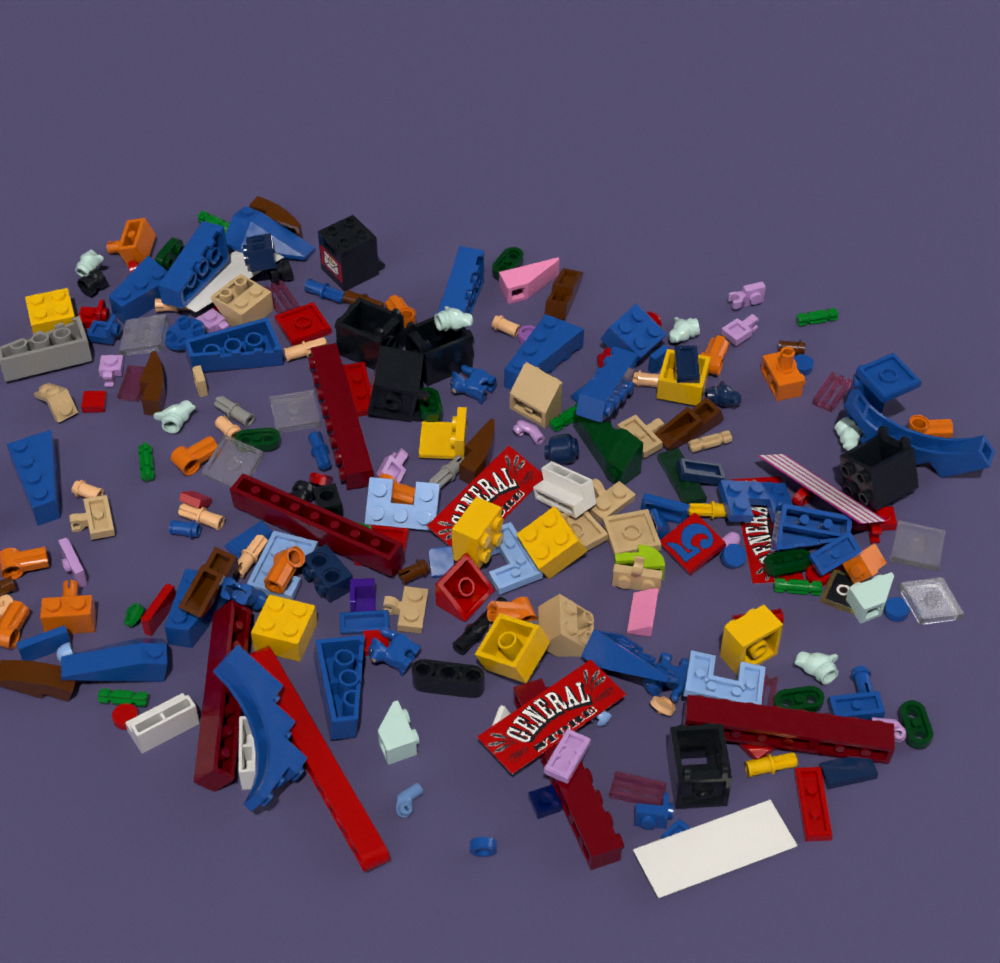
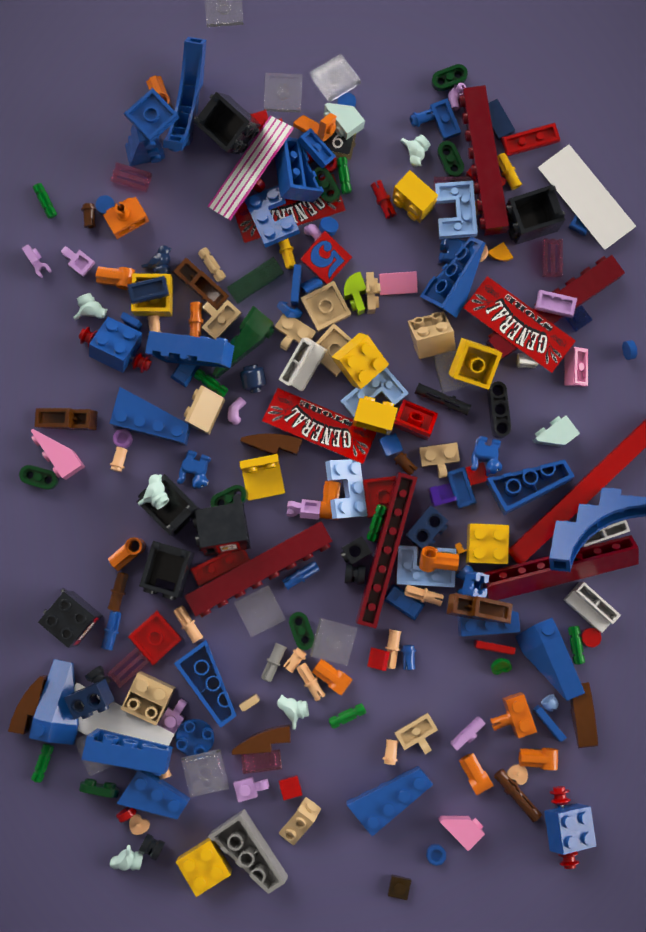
camera: 105 degrees left, 35 degrees up
(99, 313) = (191, 829): red bracket -> none
(104, 331) = (210, 811): blue bracket -> none
(116, 279) = (138, 825): none -> light nougat piece
(135, 241) = (95, 826): orange brick -> none
(195, 436) = (310, 681): none -> light nougat axle
(321, 479) = (331, 565): red tile -> none
(405, 799) = (605, 414): medium blue arm -> none
(447, 472) = (299, 464): light grey axle -> none
(464, 281) = (94, 506): blue wedge -> none
(478, 785) = (576, 367): none -> bright pink slope
(519, 608) = (427, 373): orange piece -> none
(633, 498) = (288, 311): none -> blue tile
(643, 413) = (195, 319): none -> orange pin
(654, 816) = (575, 242): blue bracket -> none
(657, 731) = (500, 253): none -> light orange tile
(700, 471) = (249, 264): dark blue tile -> none
(848, 432) = (175, 159): light aqua animal -> none

